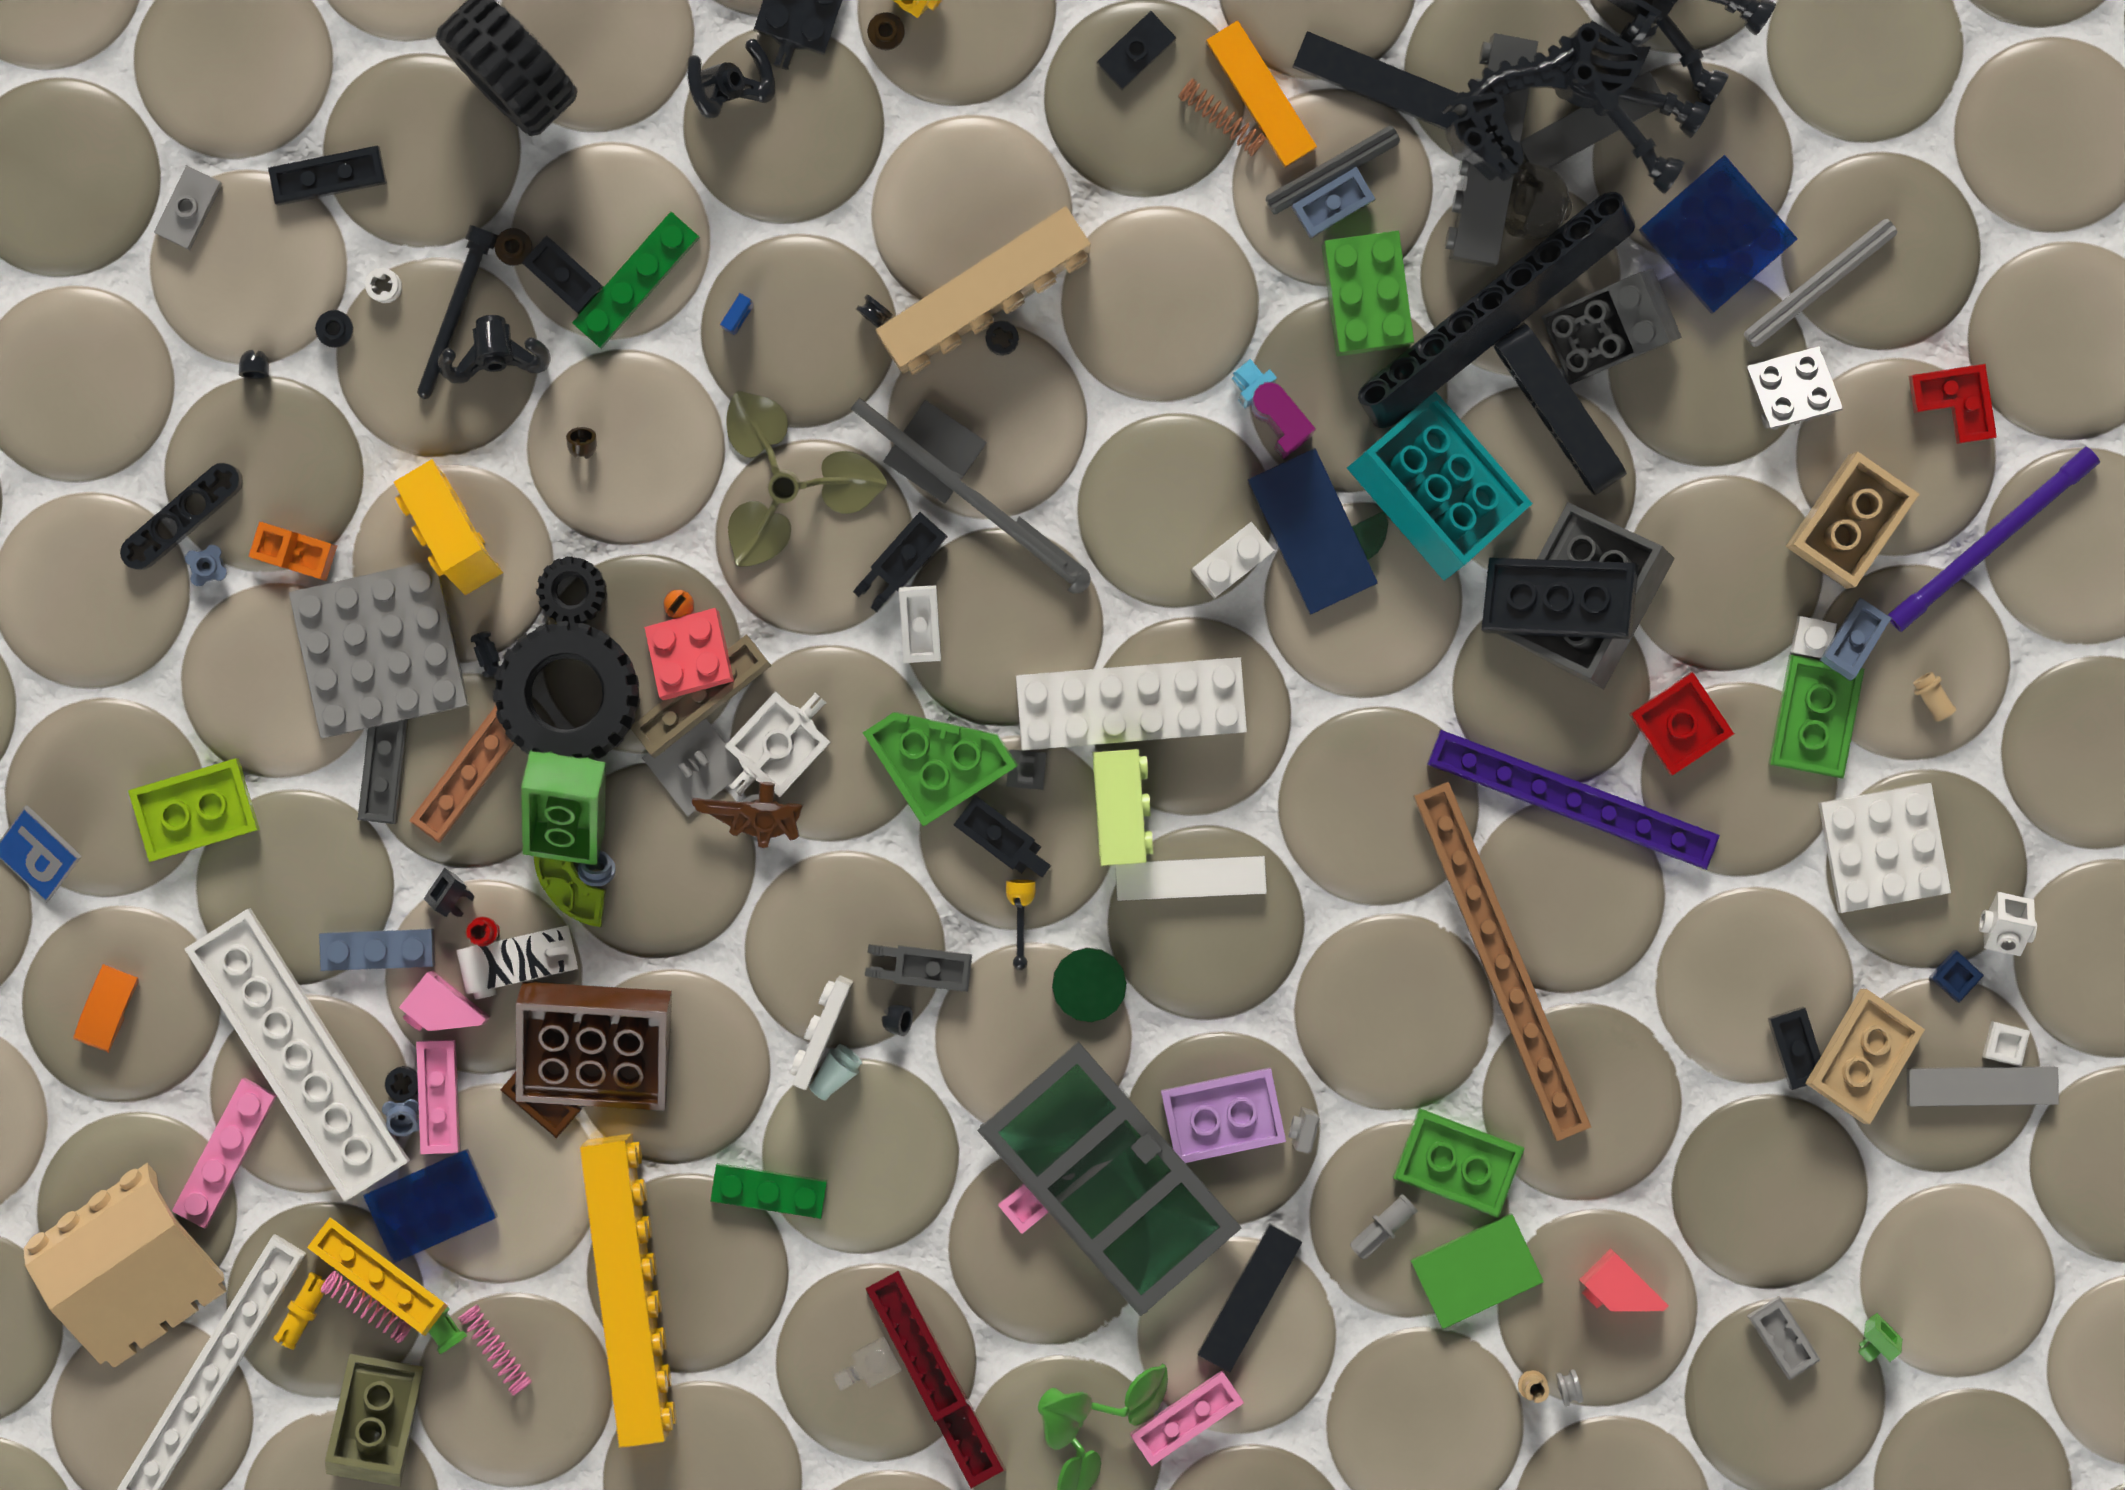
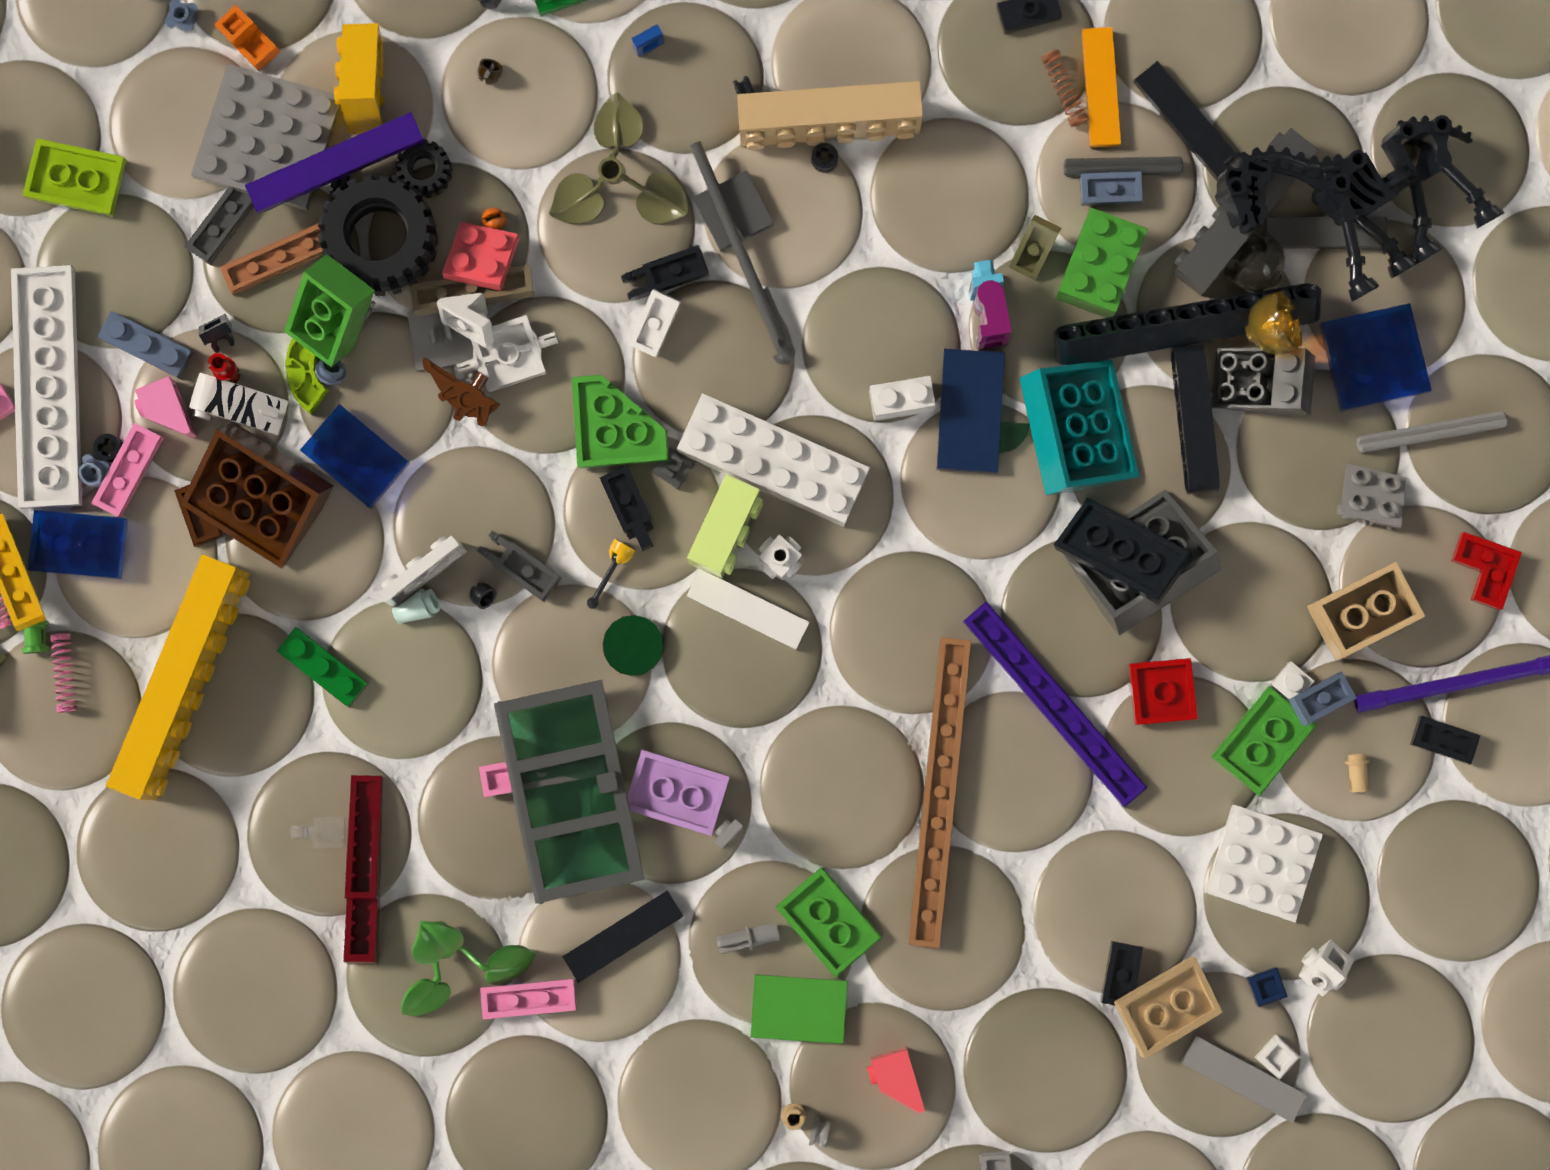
camera: 30 degrees right, 5 degrees down
(473, 641) = (334, 163): none -> dark purple tile
(675, 946) = (355, 456): none -> clear blue plate
(713, 730) = (468, 317): none -> white slope
(1181, 801) = (780, 569): none -> white brick
(1286, 315) = (1035, 247): none -> olive slope
(1592, 266) = (1273, 325): none -> clear yellow cylinder
(2008, 611) = (1445, 740): none -> black plate

